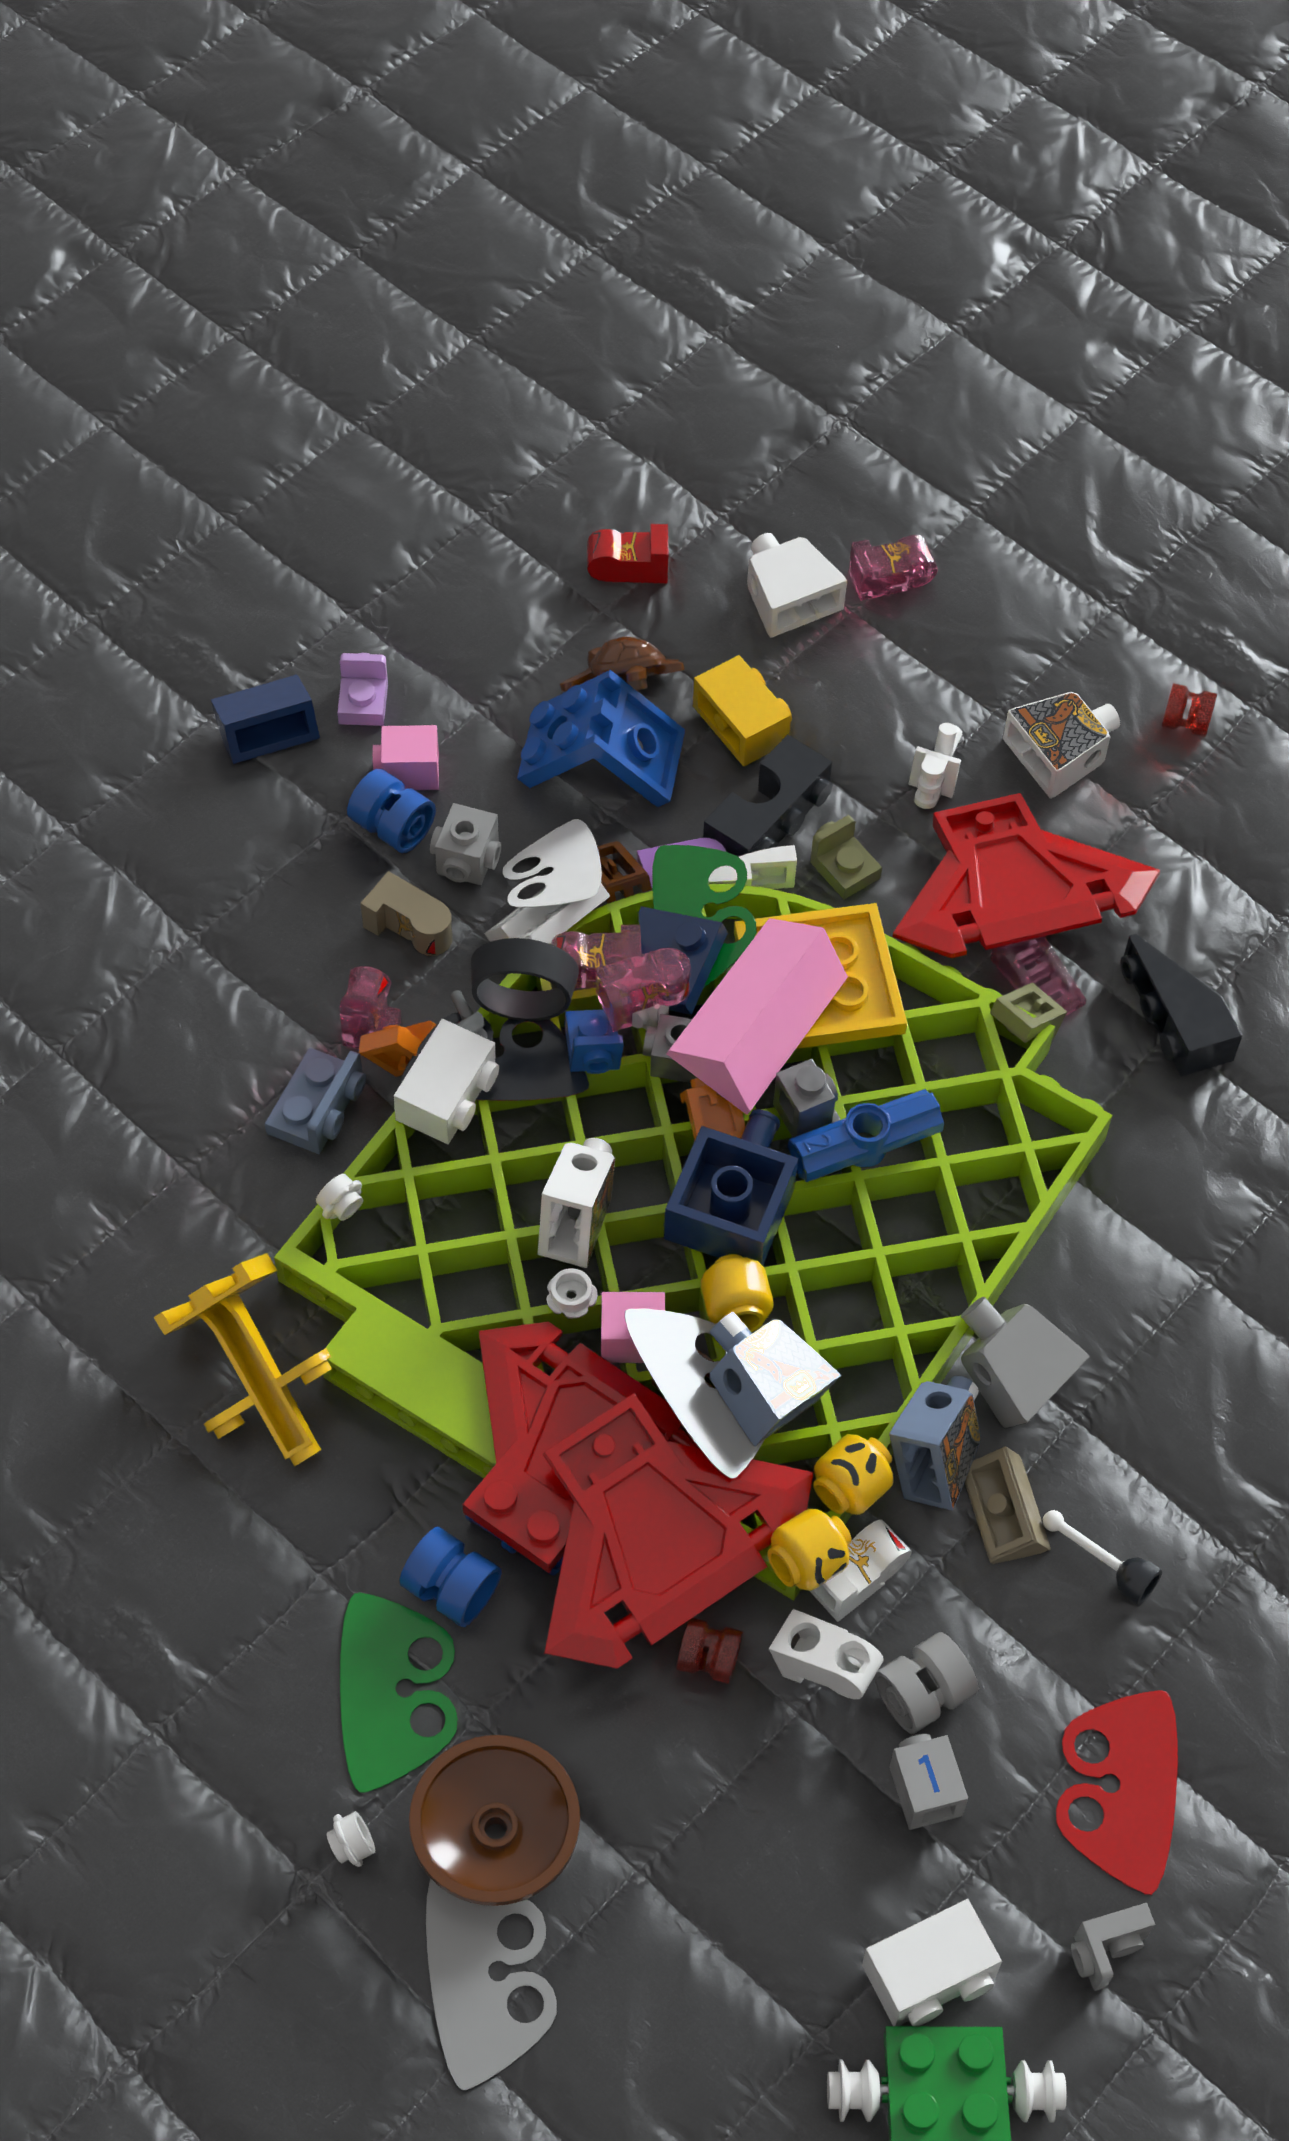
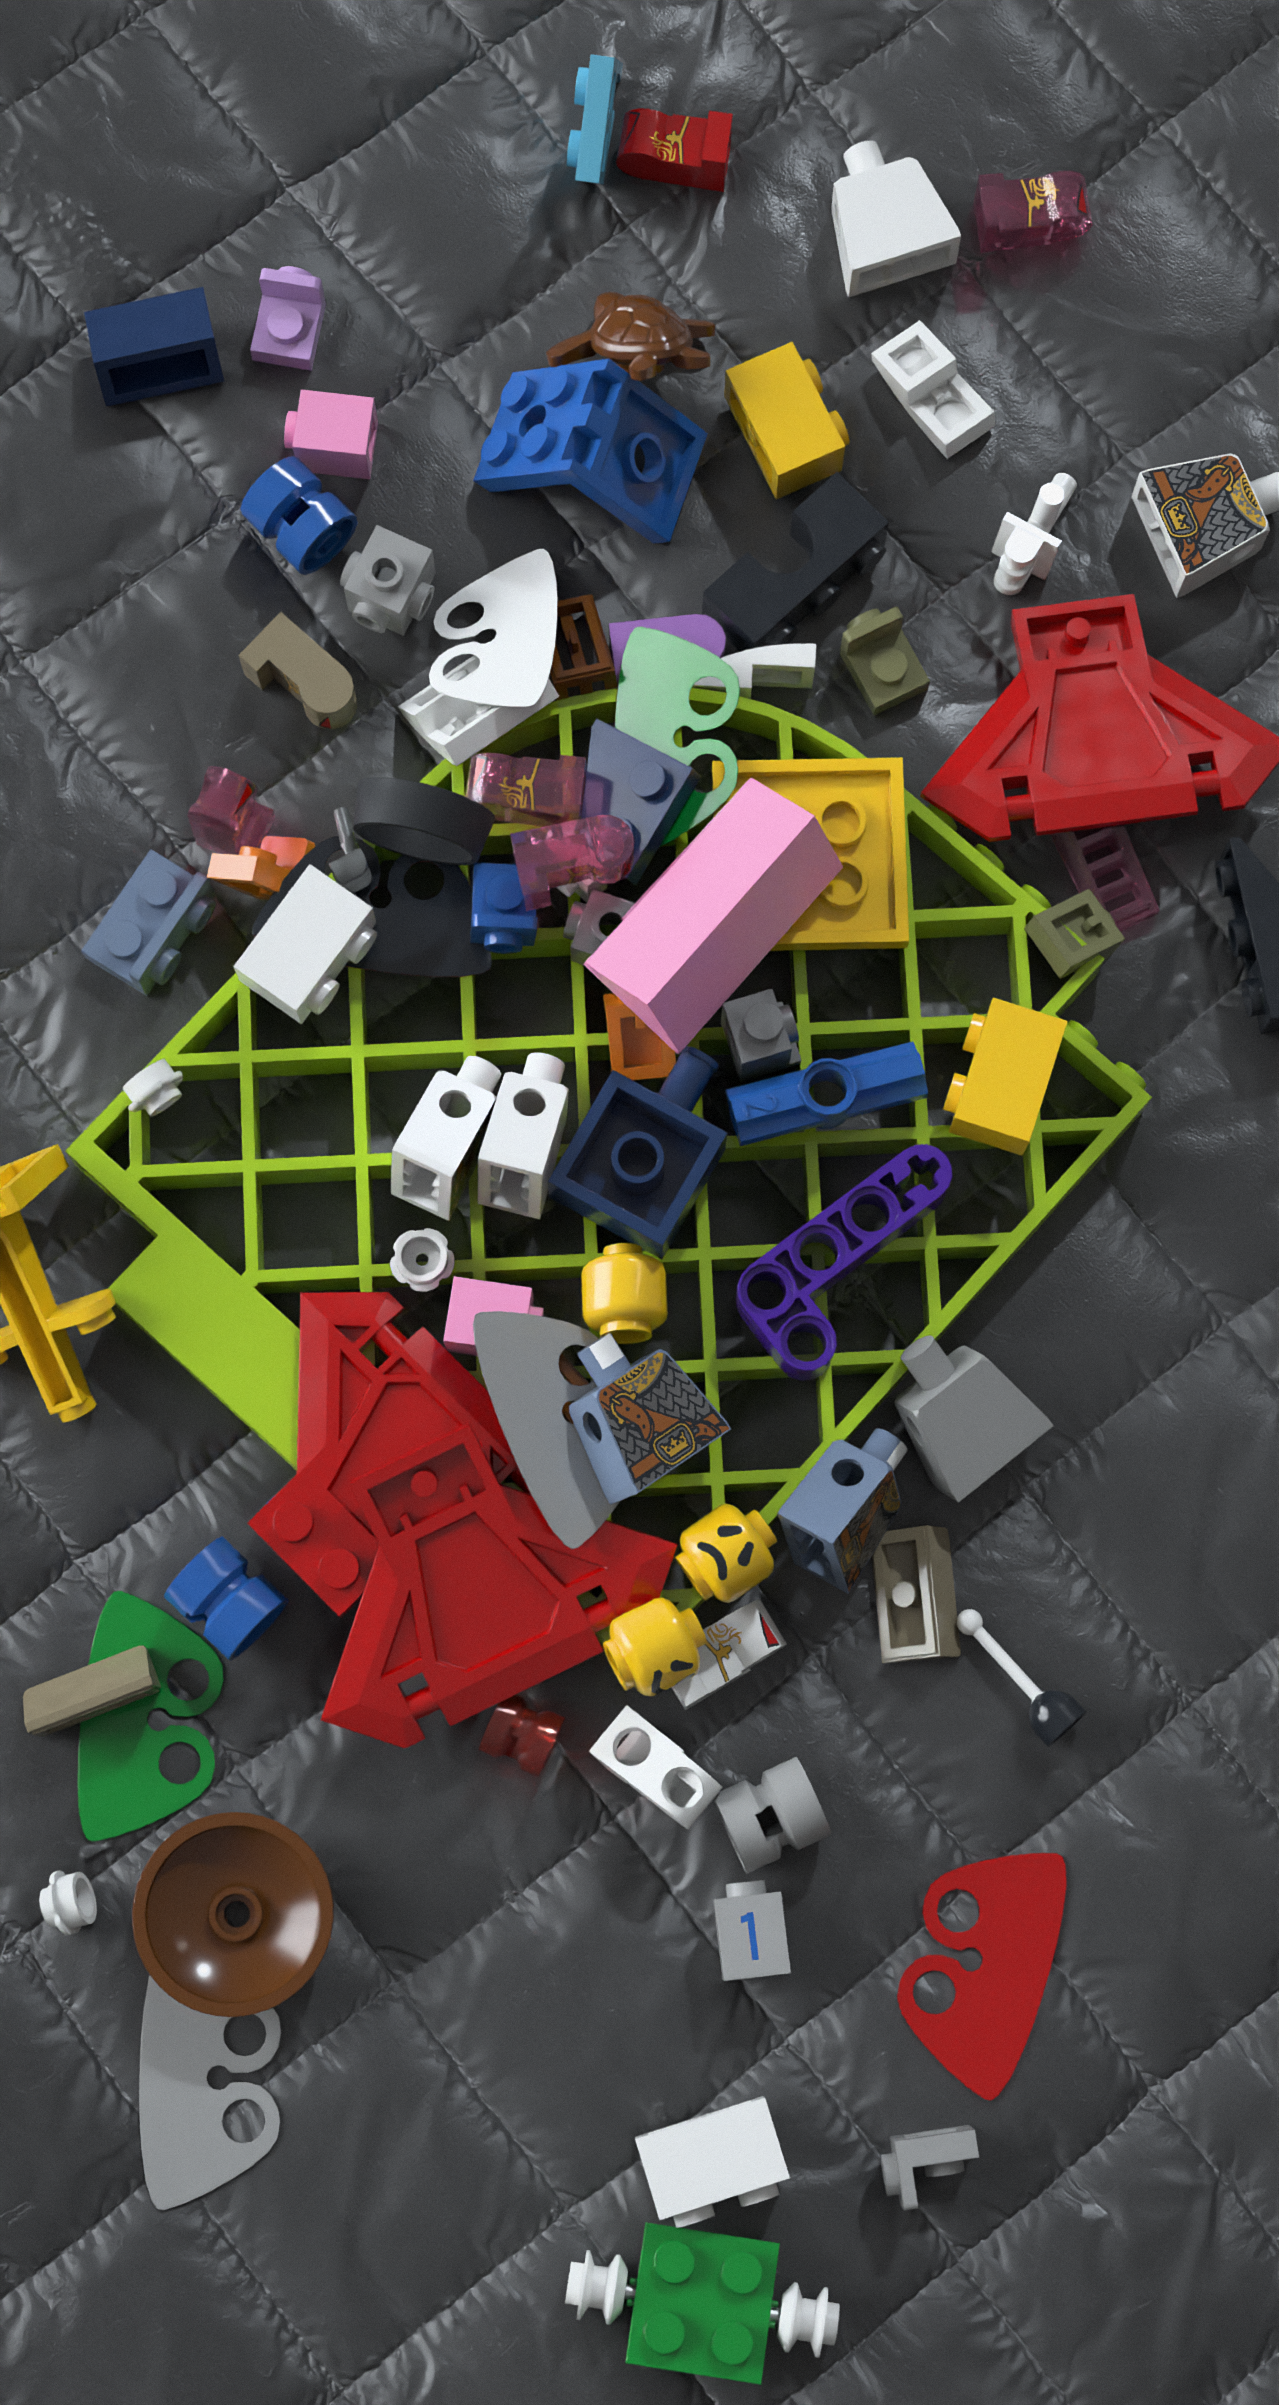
camera: 10 degrees right, 20 degrees up
(348, 1671) = (89, 1691): none -> dark tan slope
(567, 519) = (596, 92): none -> medium azure wing
(642, 1175) = (524, 1137): none -> white torso
(839, 683) = (932, 391): none -> white slope
(906, 1239) = (851, 1249): none -> dark purple beam
(1001, 1104) = (1006, 1076): none -> yellow brick

